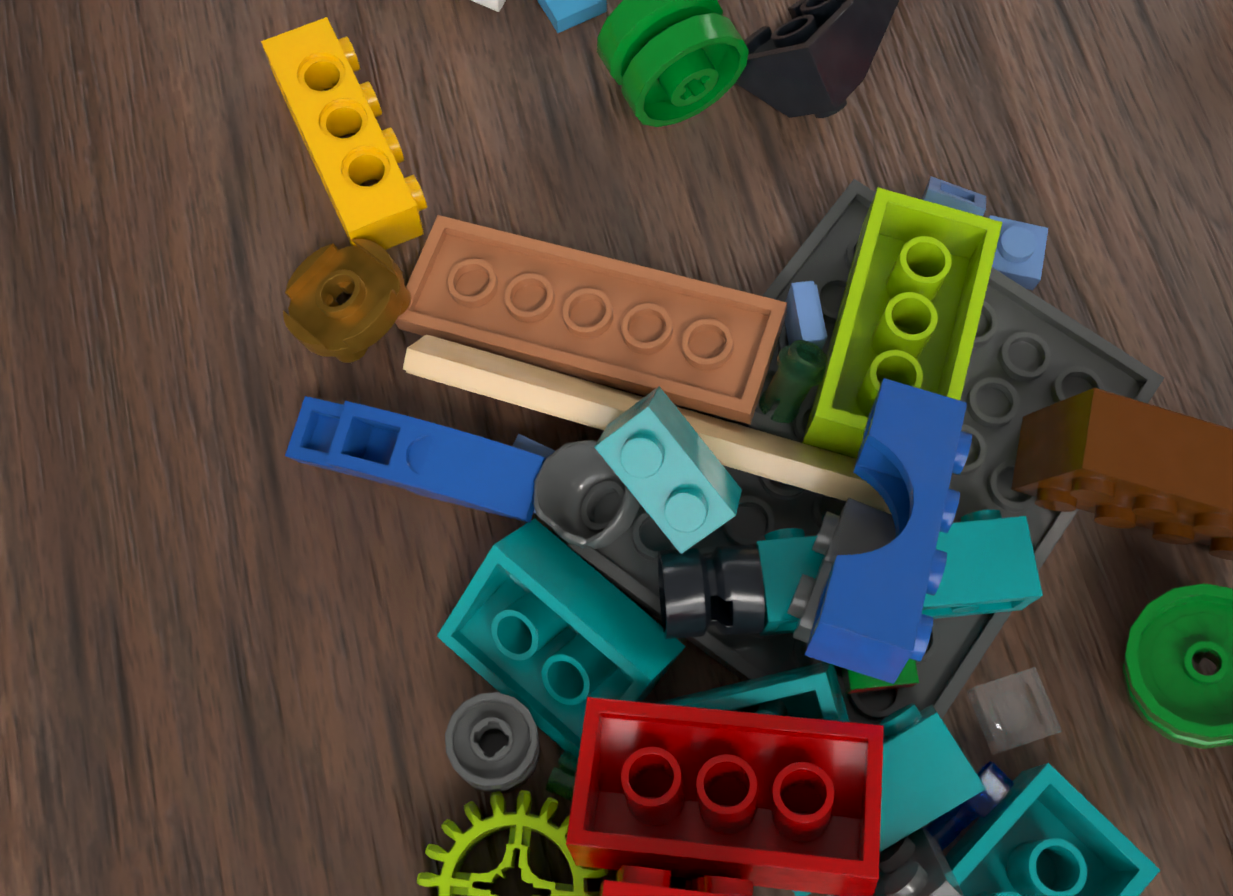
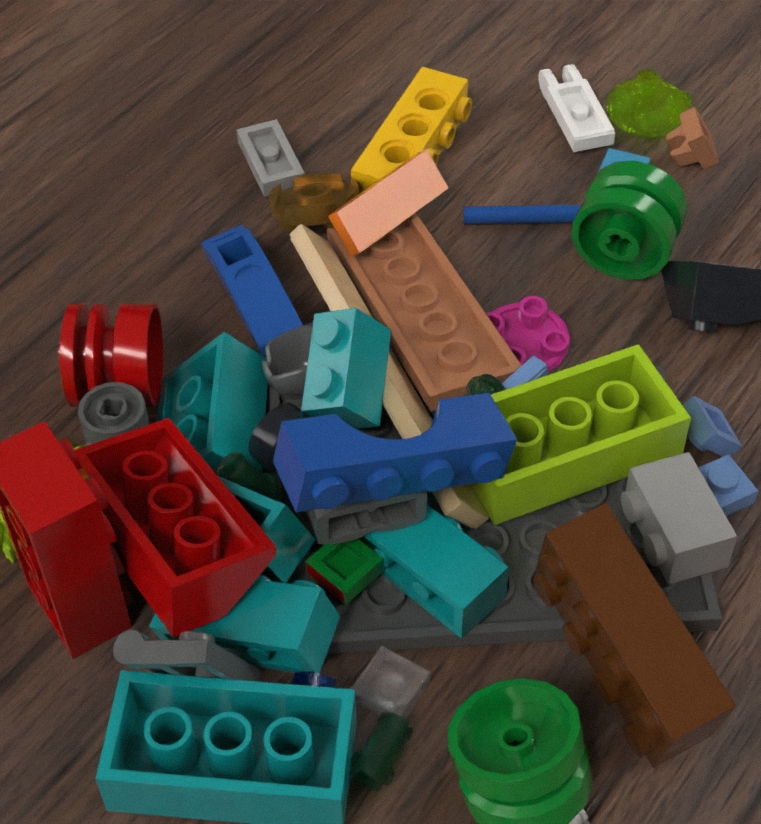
camera: 55 degrees right, 20 degrees down
(222, 287) = (269, 155): none -> light grey plate
(395, 676) = (100, 353): none -> red wheel
(437, 237) = (388, 202): none -> orange tile
(543, 120) = (519, 214): none -> blue bar
(701, 674) = (241, 472): none -> clear green pin
(708, 248) = (532, 330): none -> dark pink dish
(1060, 322) = (678, 518): none -> light grey brick
(1071, 760) = (375, 762): none -> clear green pin

